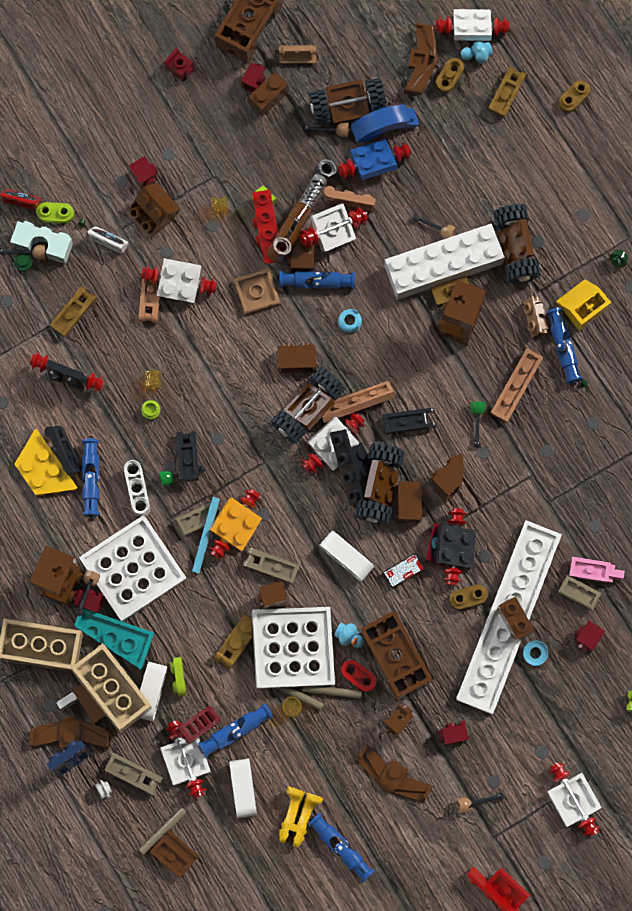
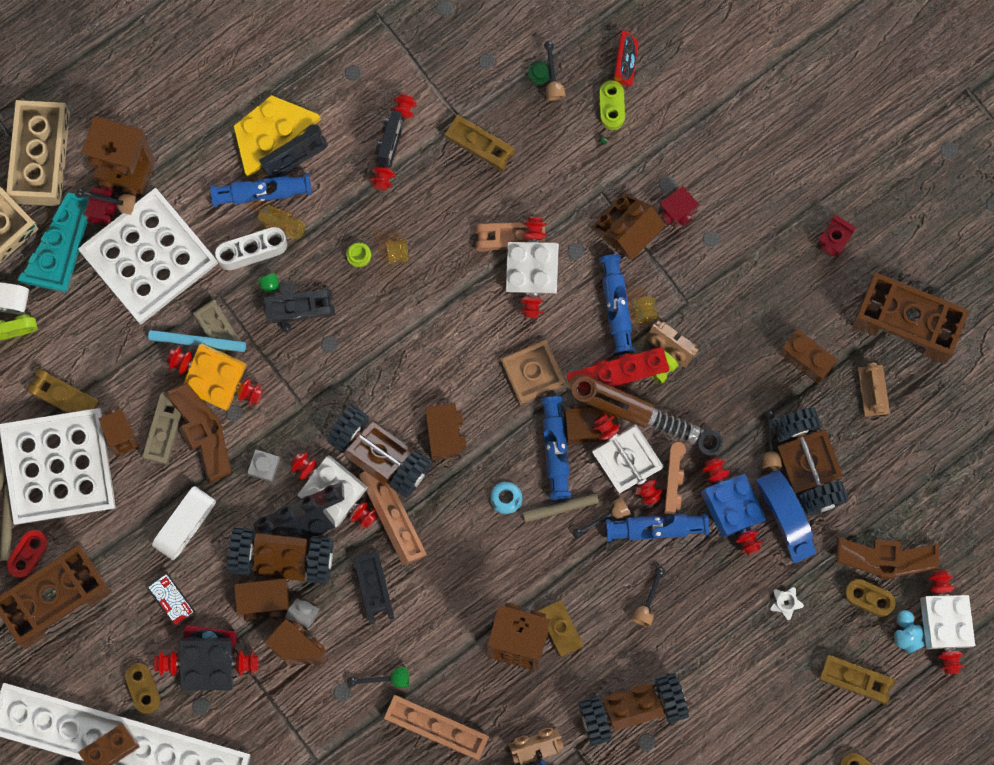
camera: 85 degrees right, 0 degrees up
(27, 235) = (564, 112): light aqua arch -> none
(107, 239) = (583, 174): white slope -> none
(115, 467) = (276, 218): none -> clear yellow plate
(206, 225) = (617, 309): none -> blue piece
(243, 195) = (663, 336): none -> medium nougat hinge
(253, 77) = (831, 335): dark red brick -> none
(277, 537) = (201, 431): none -> reddish brown plate
(307, 494) = (263, 465): none -> light grey plate
(348, 635) = (78, 534): medium azure animal -> none
(361, 282) = (560, 507): none -> dark tan bar
(367, 240) = (618, 510): none -> hinge
(383, 221) = (662, 526): none -> blue piece
(423, 473) = (302, 612): none -> light grey plate
(444, 261) = (599, 613): white brick -> none
(446, 129) = (790, 596): none -> white plate

